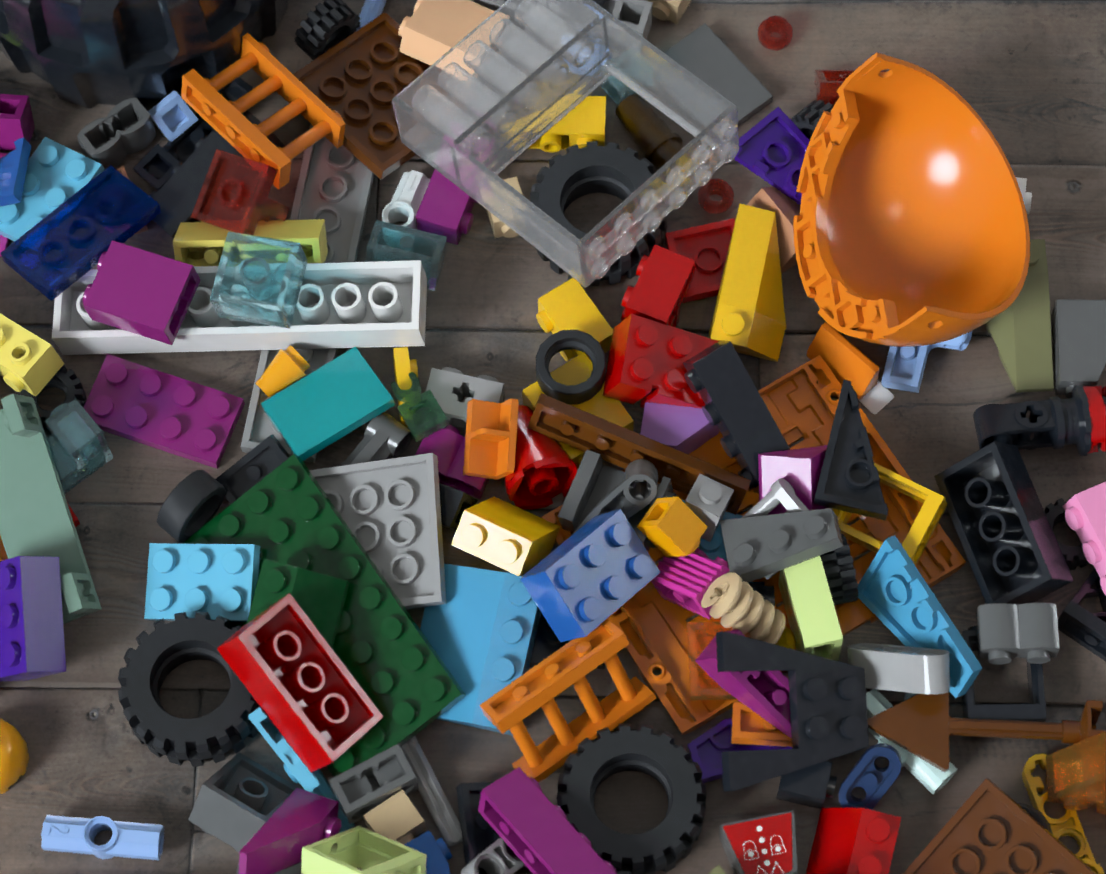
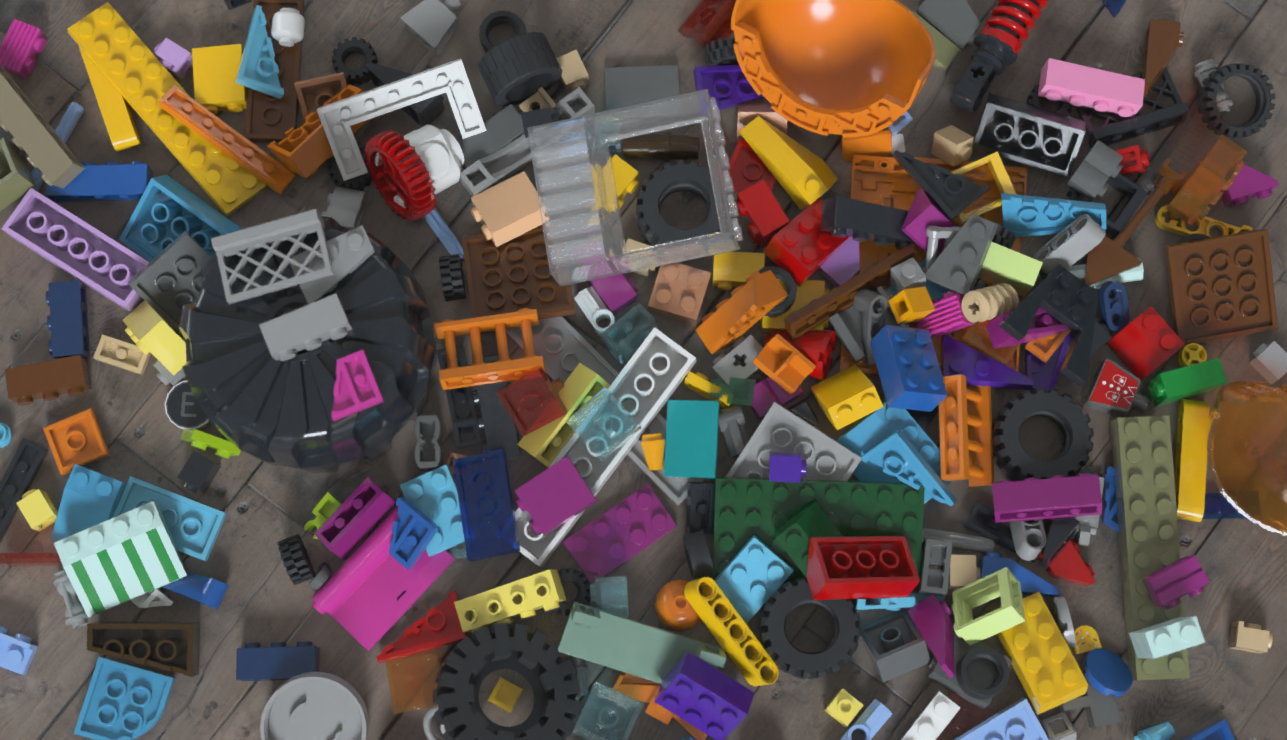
camera: 55 degrees left, 10 degrees up
(119, 580) = (720, 628): none -> yellow beam
(121, 531) = (673, 607): none -> orange cylinder
(125, 795) = (843, 707): none -> light yellow brick
(172, 116) = (440, 402): light blue plate -> none
(364, 520) = (786, 467): none -> dark purple brick
(469, 655) = (903, 460): none -> dark azure wing
(496, 277) = (679, 293): none -> nougat brick
(516, 344) = (741, 311): none -> orange wedge
(660, 665) = (978, 368): none -> dark purple wing
(775, 24) = (638, 28): clear red plate -> none
(918, 452) = (952, 145): none -> tan brick
(1075, 676) = (1134, 160): none -> red bracket

